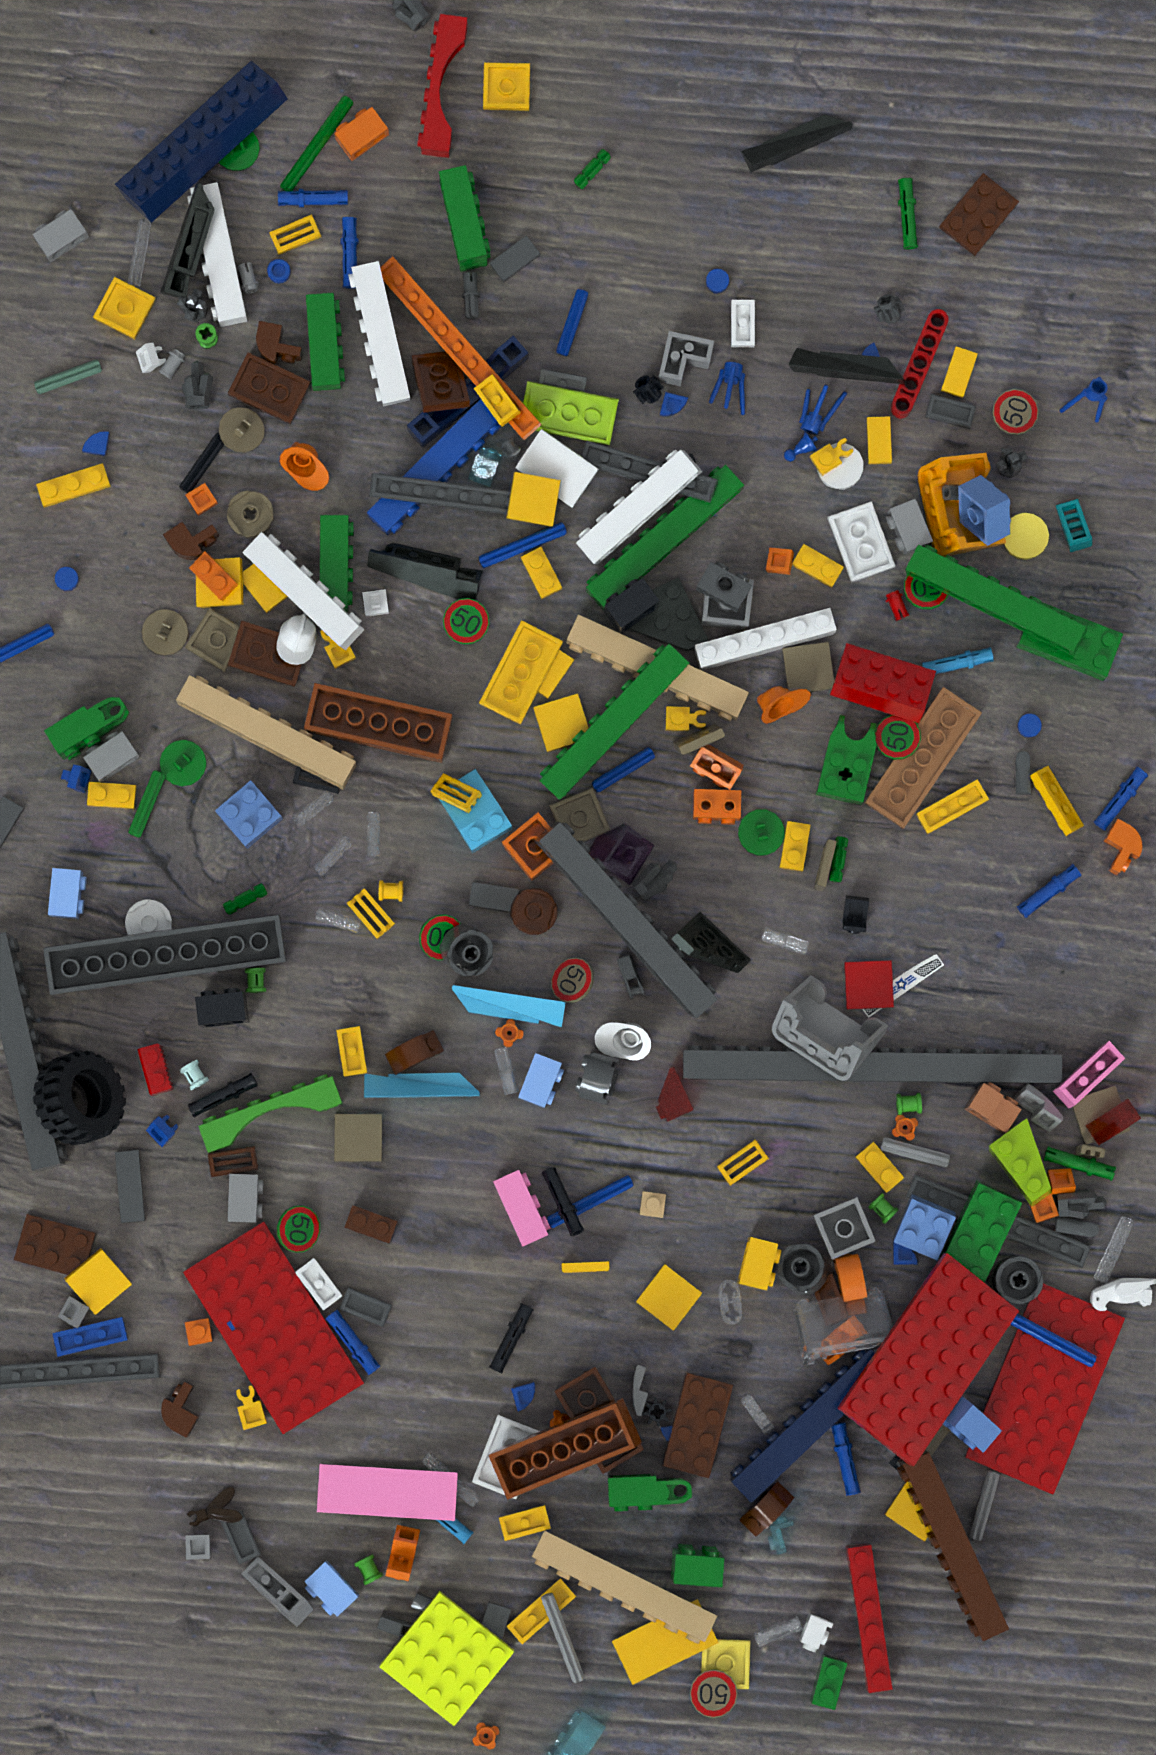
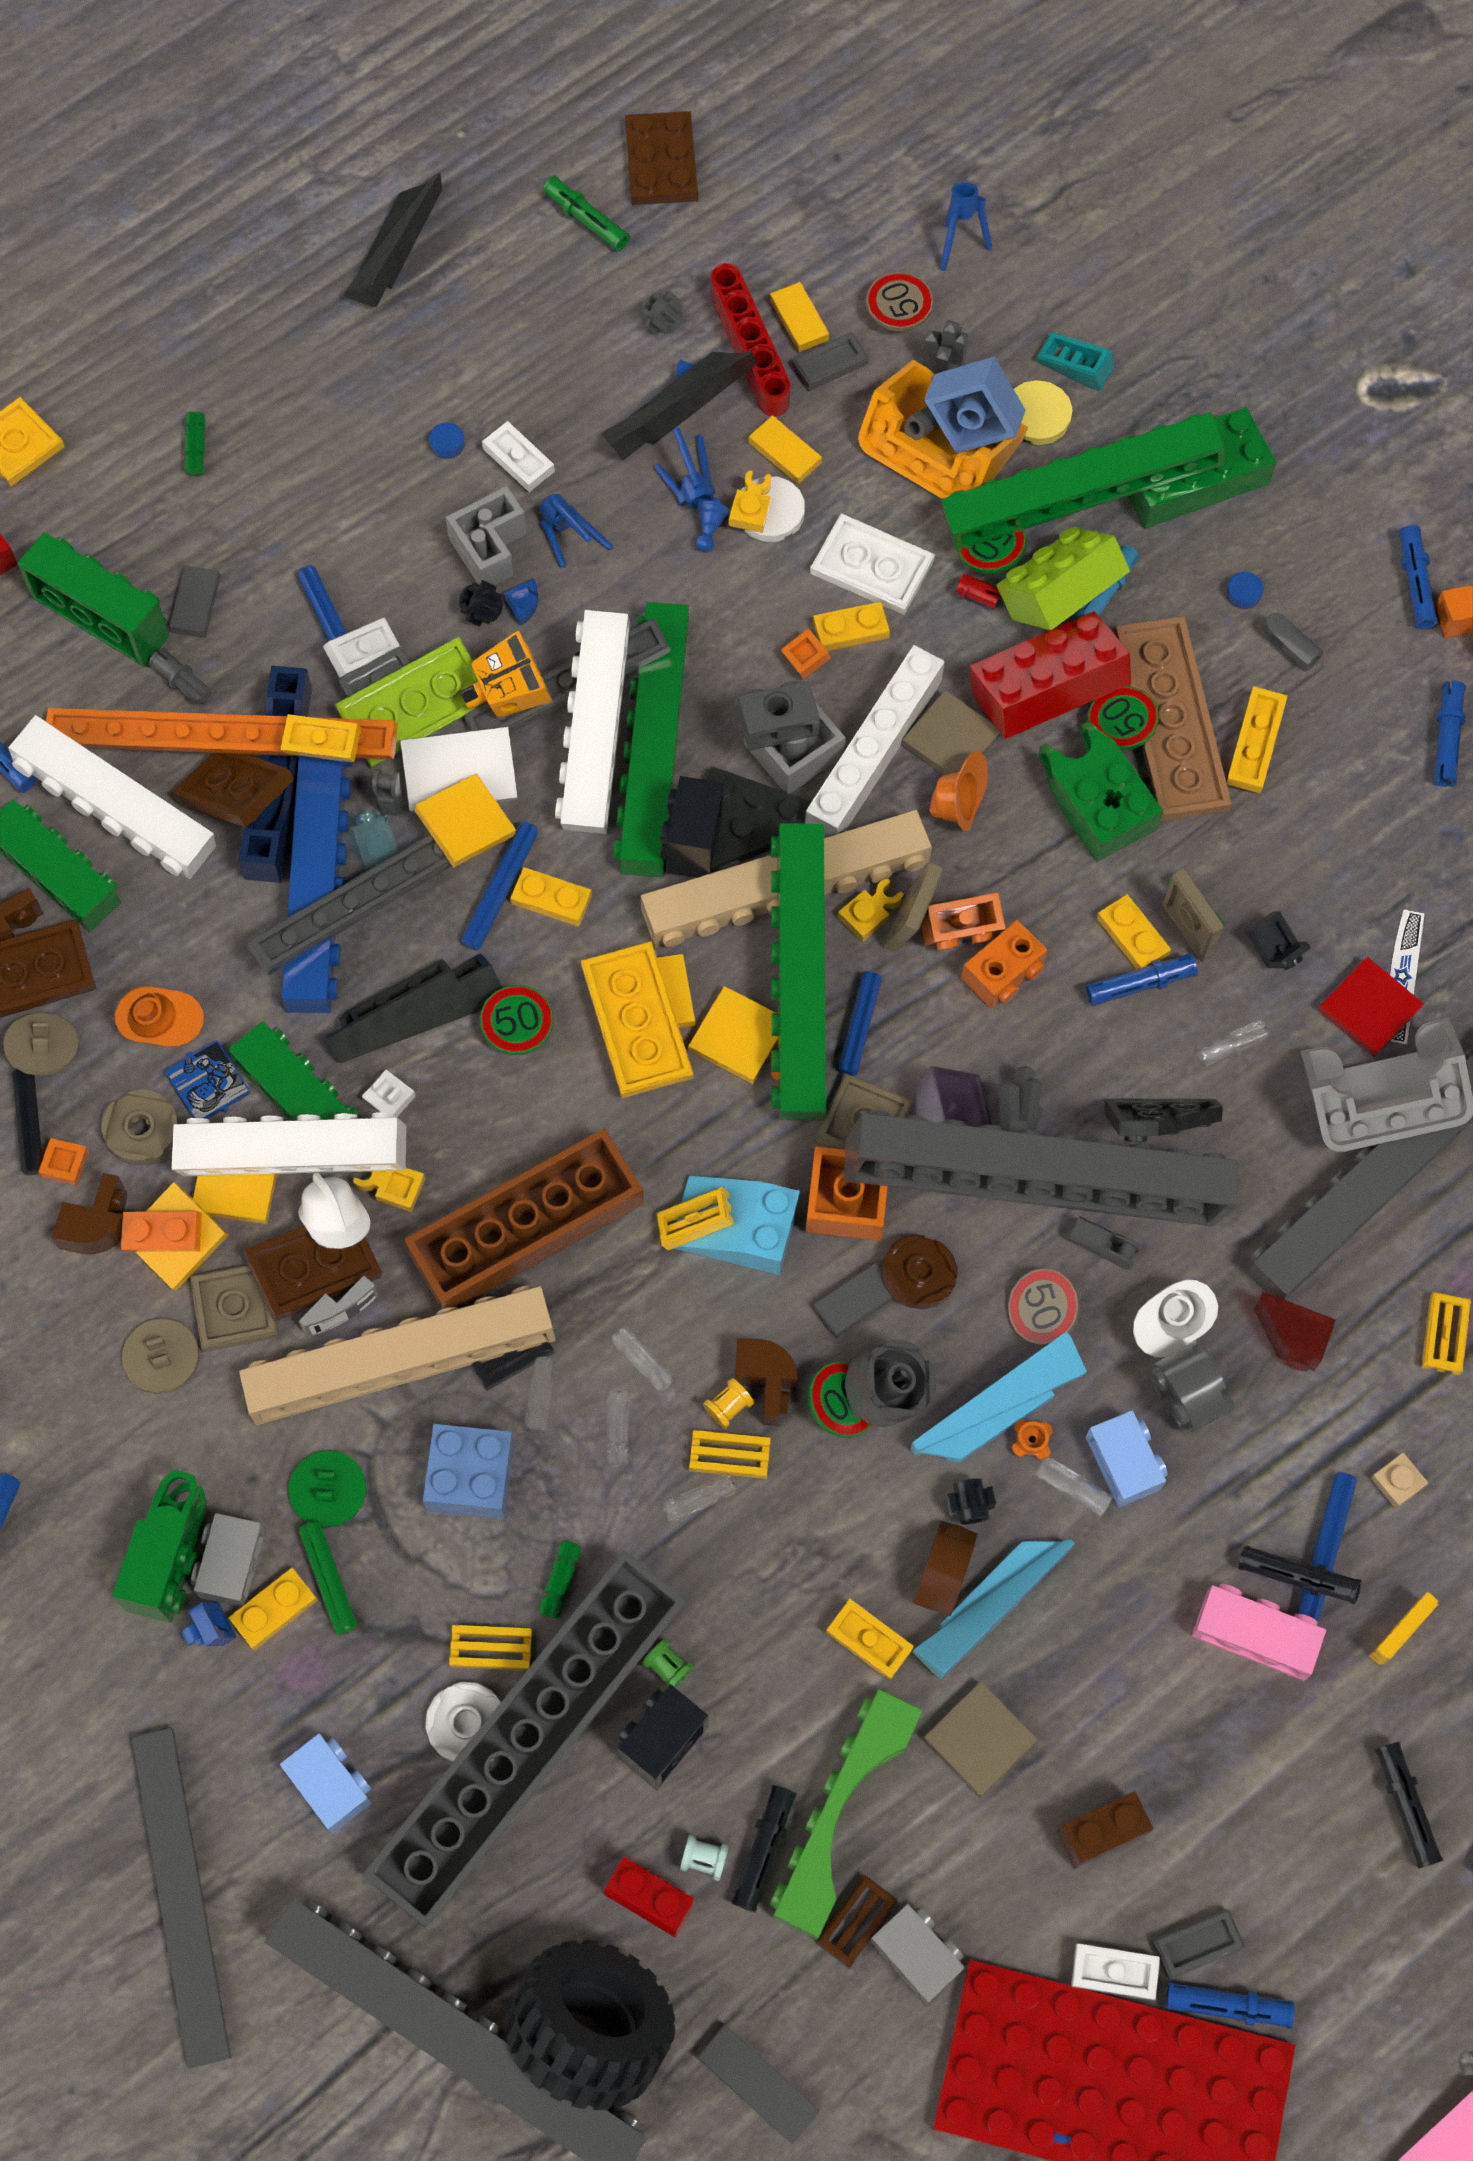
camera: 40 degrees left, 15 degrees down
(161, 1131) = (731, 1970): blue tile -> none
(174, 886) = (495, 1632): none -> yellow tile
(253, 683) = (328, 1314): none -> light grey slope
(298, 1229) = (1022, 1925): piece -> none
(300, 518) = (207, 1081): none -> piece
(425, 894) = (766, 1366): none -> reddish brown brick
(453, 1034) = (971, 1501): none -> black gear
(569, 361) = (360, 647): none -> white plate
(619, 445) = (507, 679): none -> light orange torso
(761, 832) = (1081, 953): green piece -> none
(775, 872) = (1155, 975): none -> blue pin
(909, 526) = (908, 502): light grey brick -> none
(938, 639) = (1062, 577): none -> lime brick
(1056, 800) = (1357, 636): yellow plate -> none

